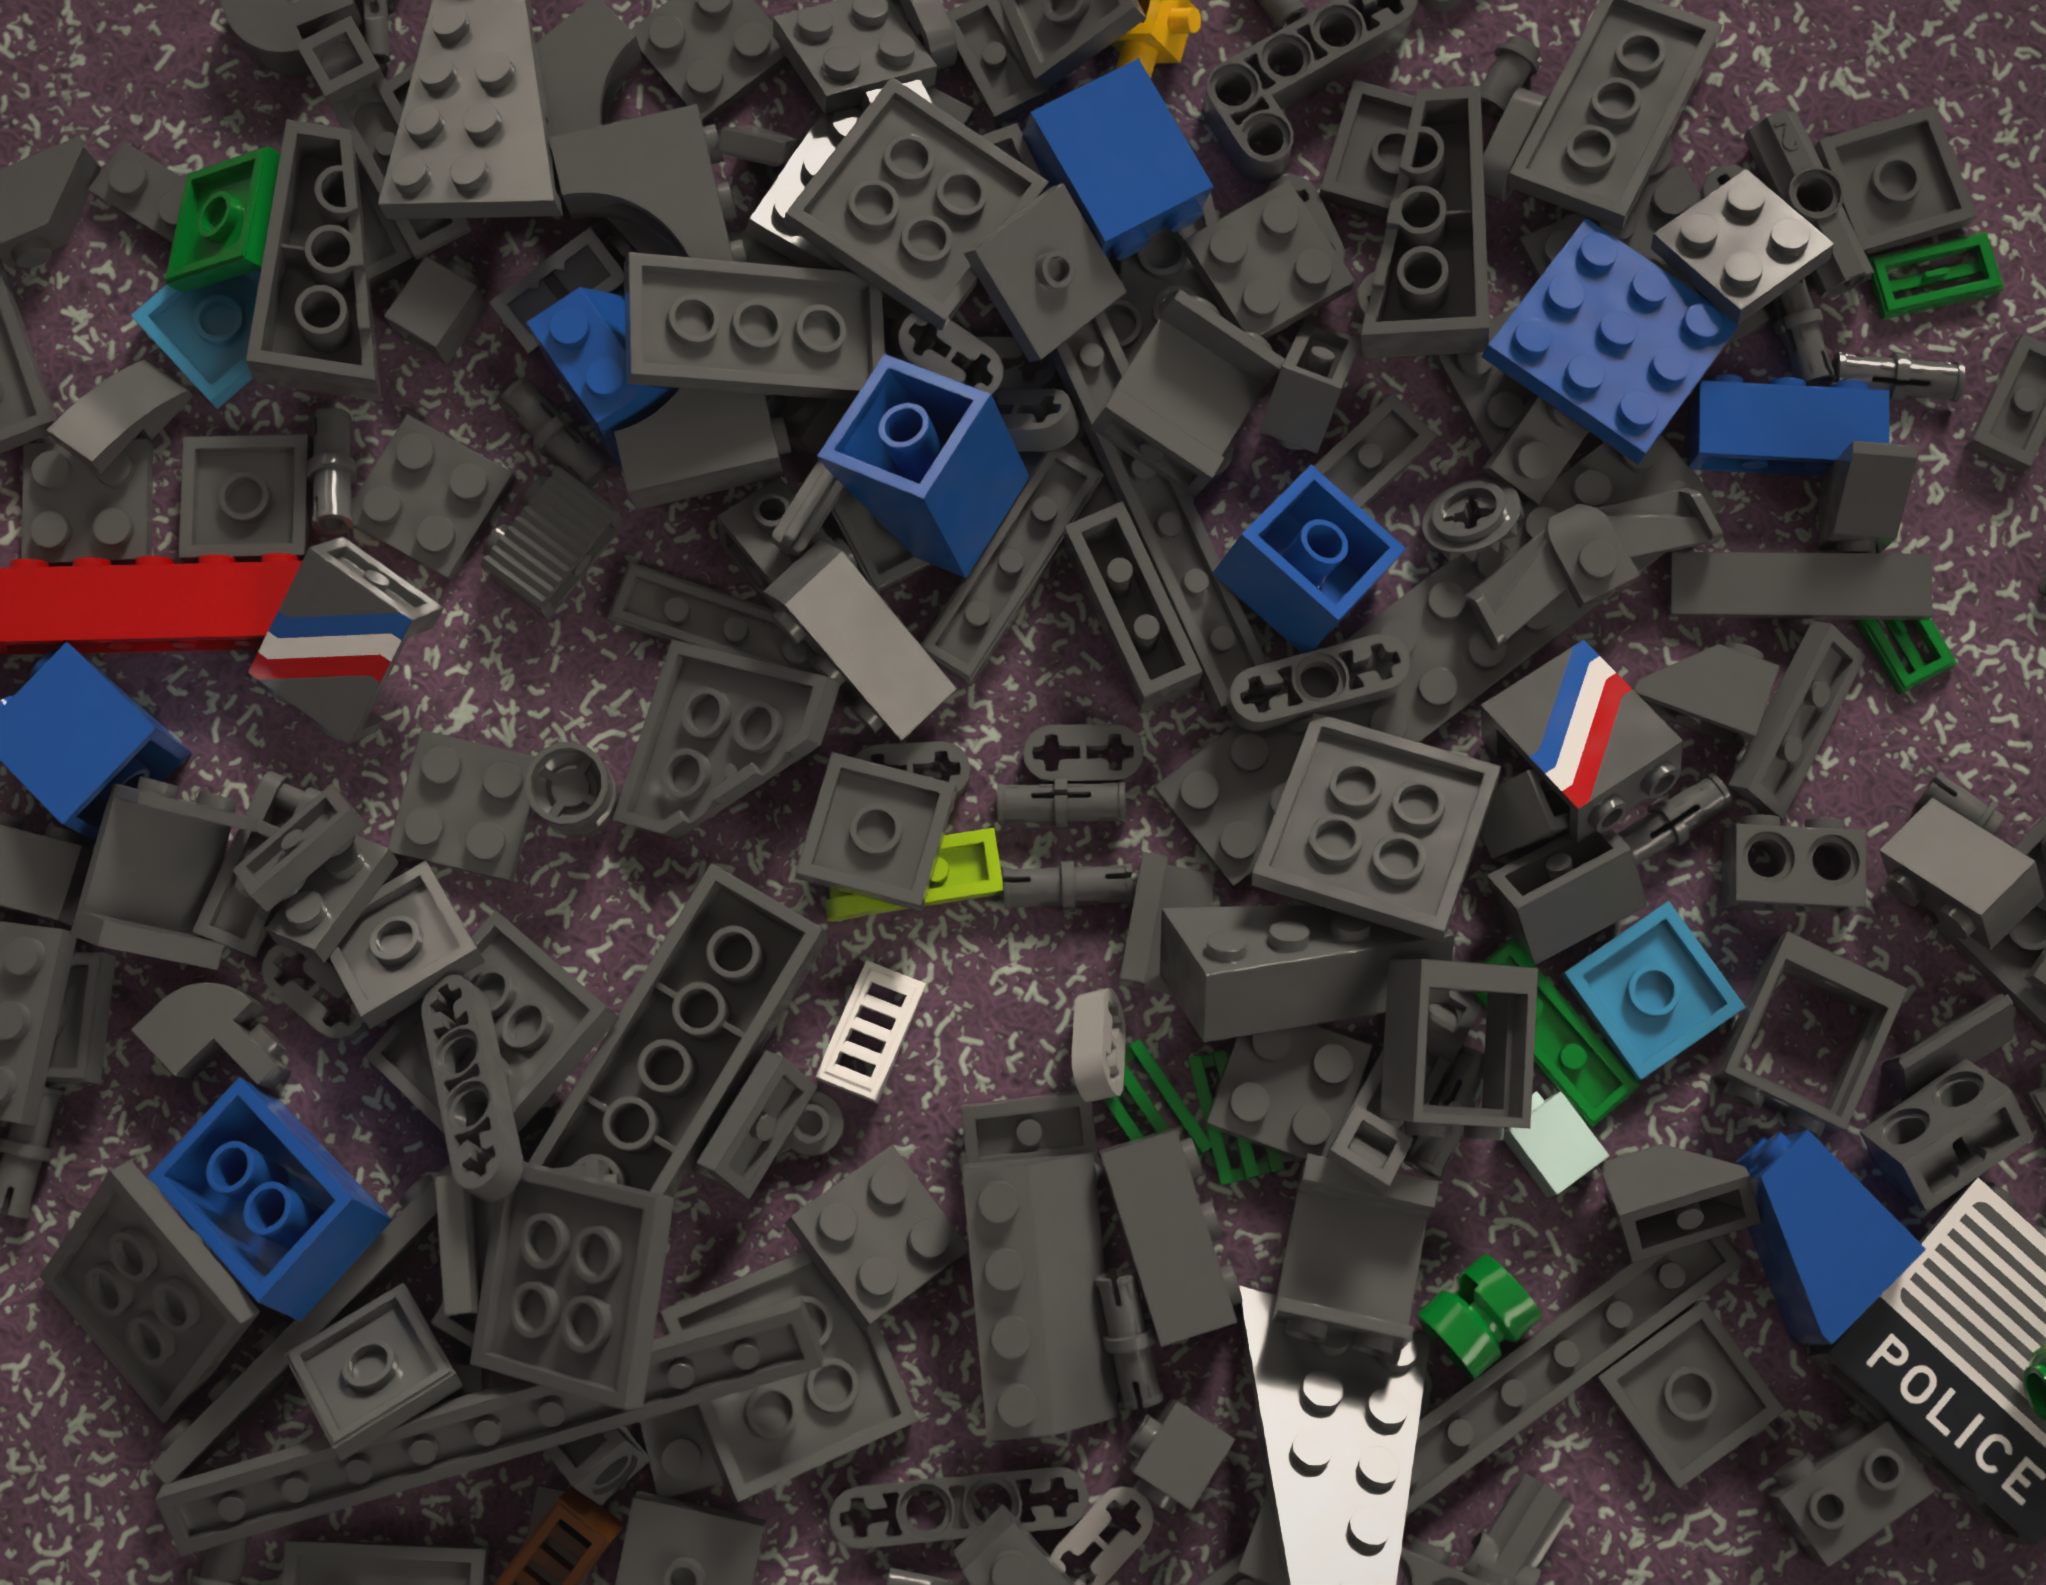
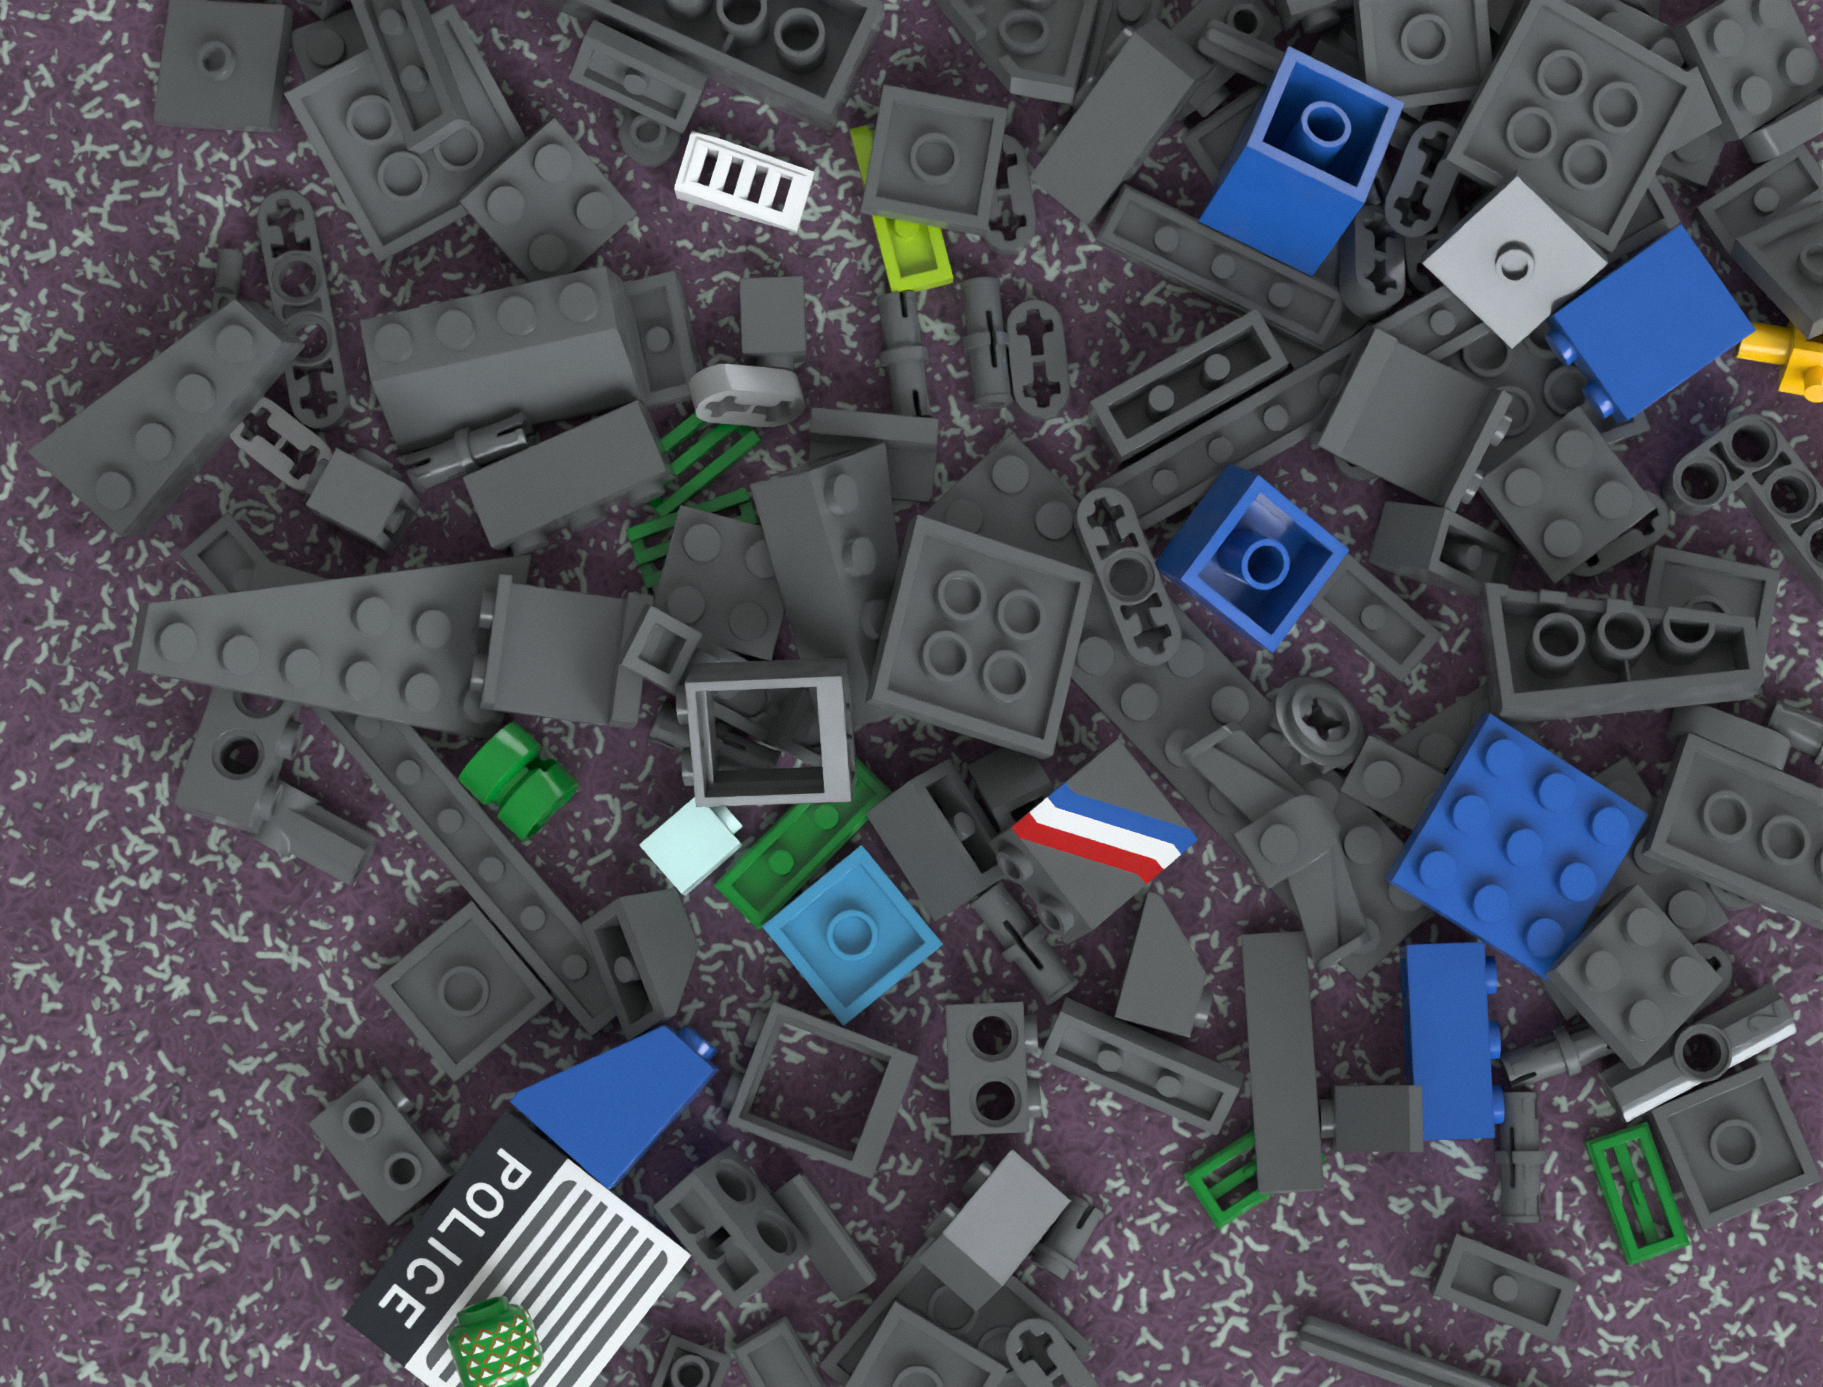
camera: 85 degrees right, 5 degrees up
(1023, 1012) = (773, 321): none -> dark grey brick

